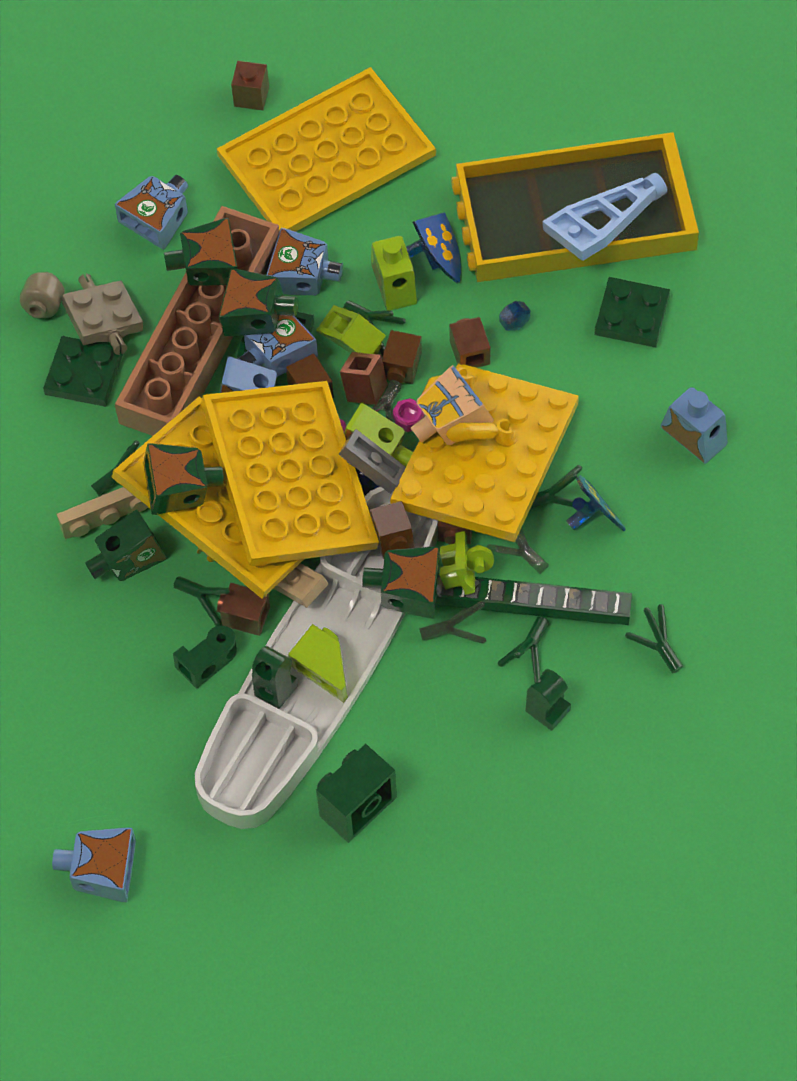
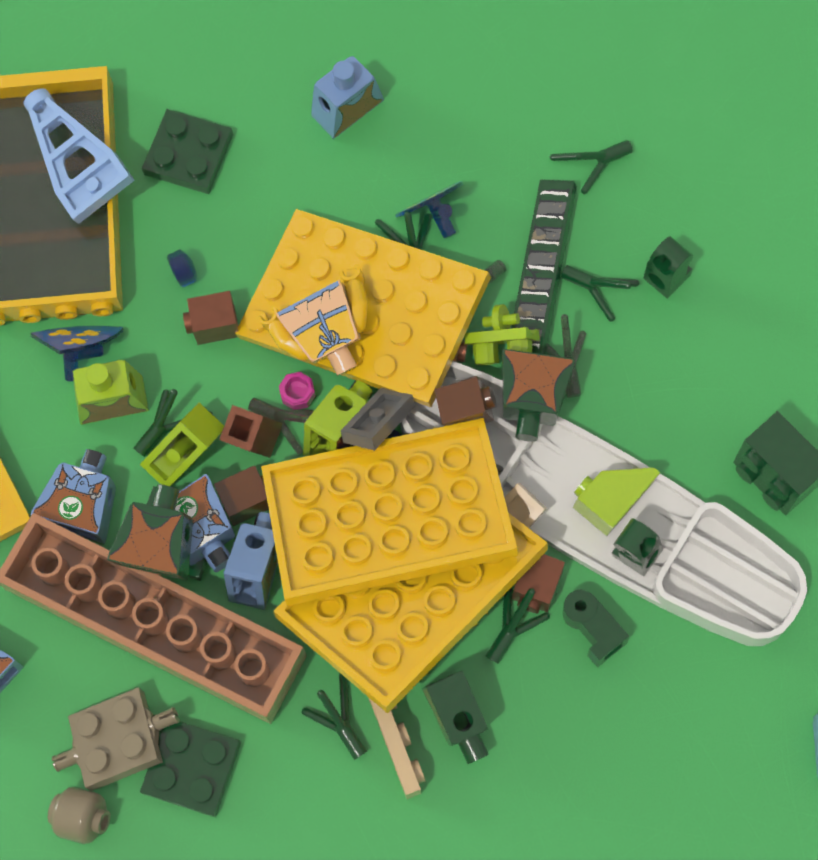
camera: 85 degrees left, 10 degrees up
(177, 477) = (404, 629): dark green torso -> none
(205, 254) = (74, 593): torso -> none
(402, 356) = (221, 389): reddish brown brick -> none

